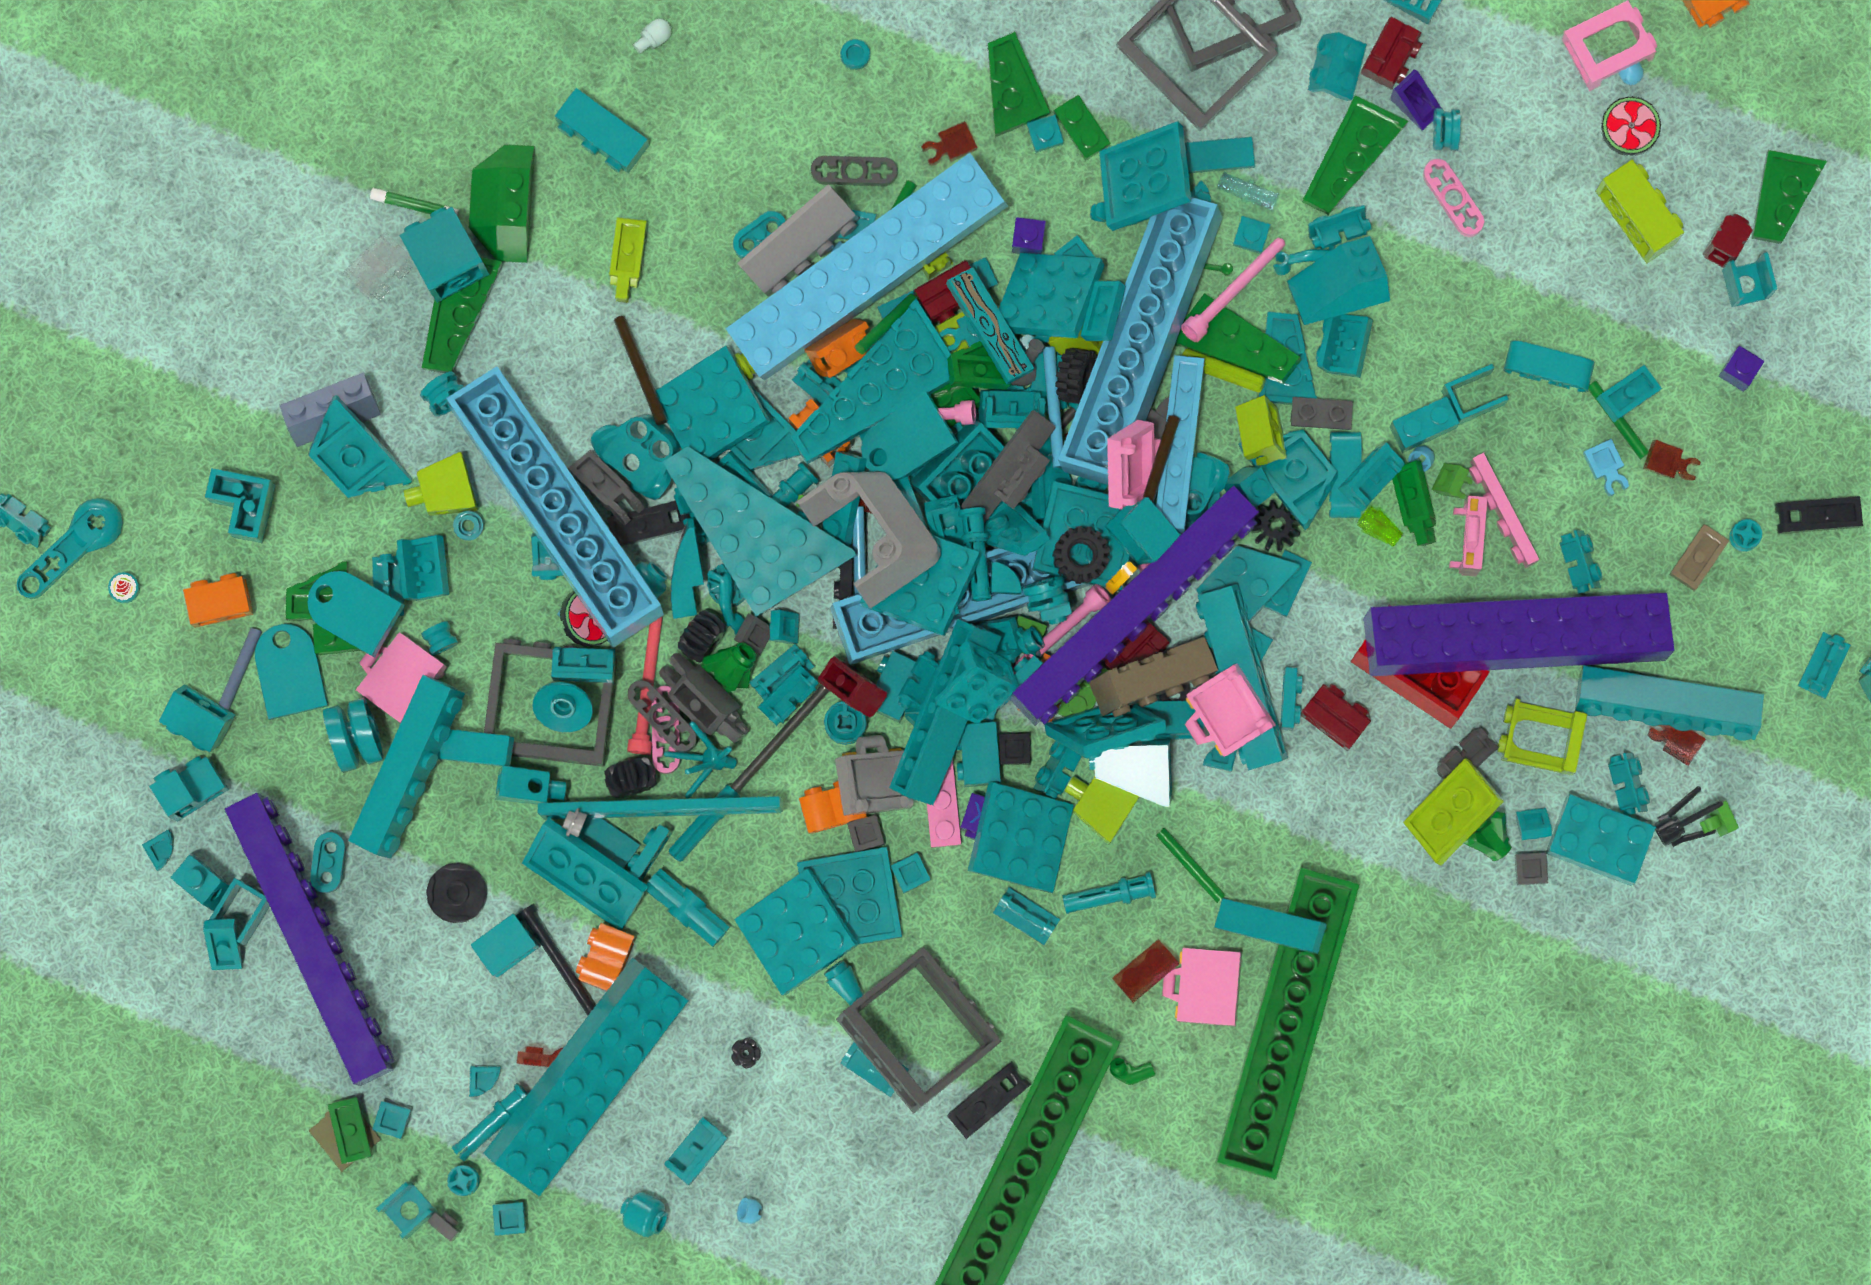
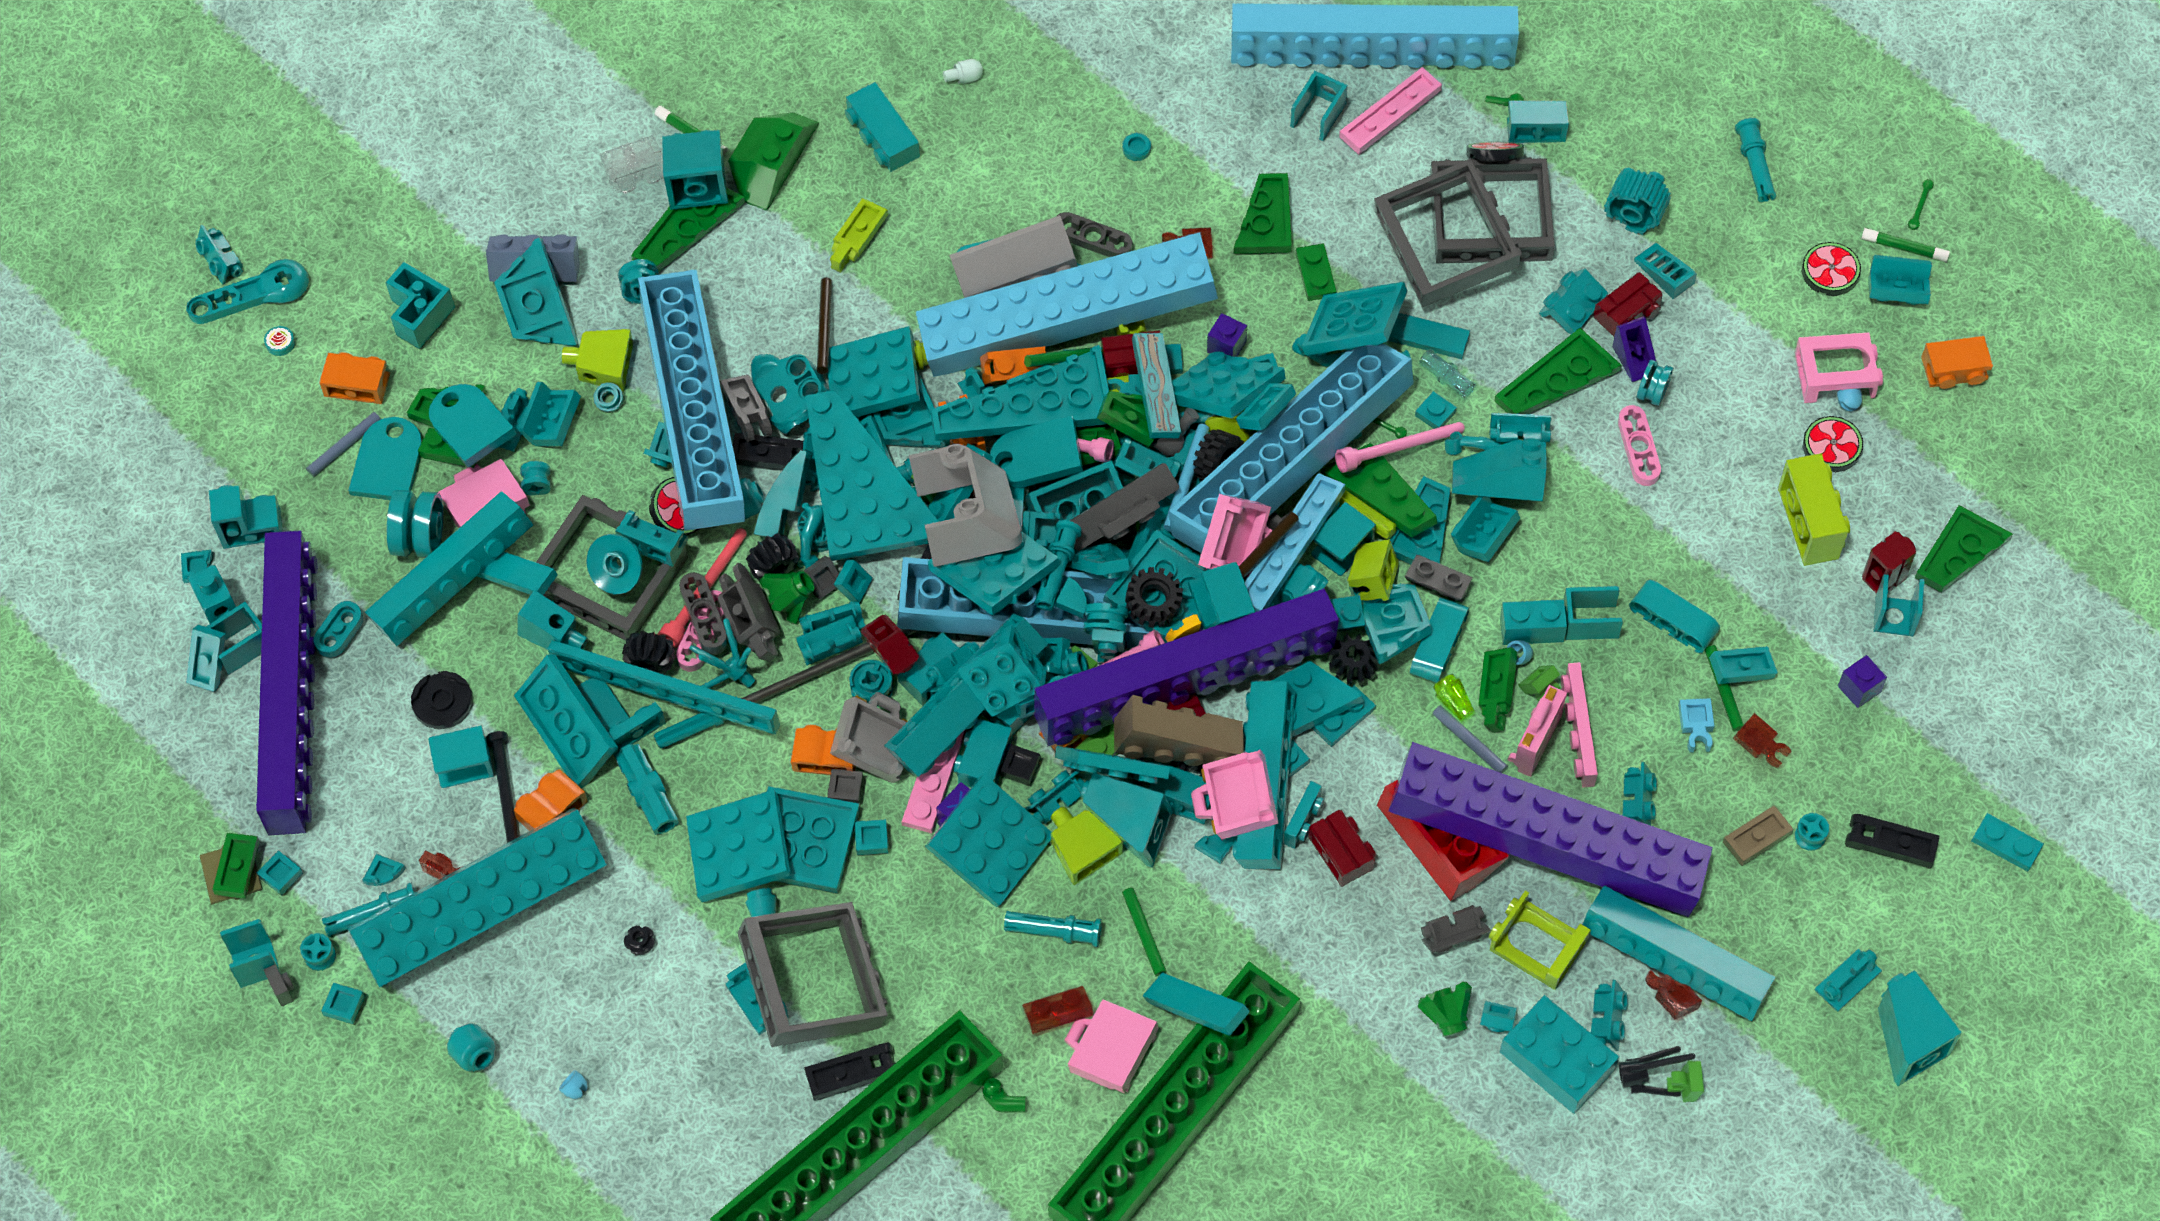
camera: 20 degrees right, 20 degrees down
(196, 718) = (284, 464): teal brick -> none
(574, 822) = (576, 665): light grey plate -> none
(696, 1151) = (550, 1012): teal hinge -> none
(1026, 916) = (964, 917): teal hinge -> none
(1045, 133) = (1280, 265): teal plate -> none
(1220, 407) = (1340, 538): none -> teal piece
(1372, 476) = (1463, 642): teal hinge -> none
(1408, 562) = (1469, 739): none -> sand blue bar
(1453, 812) = (1420, 968): lime tile -> none
(1531, 869) = (1479, 1058): dark grey plate -> none

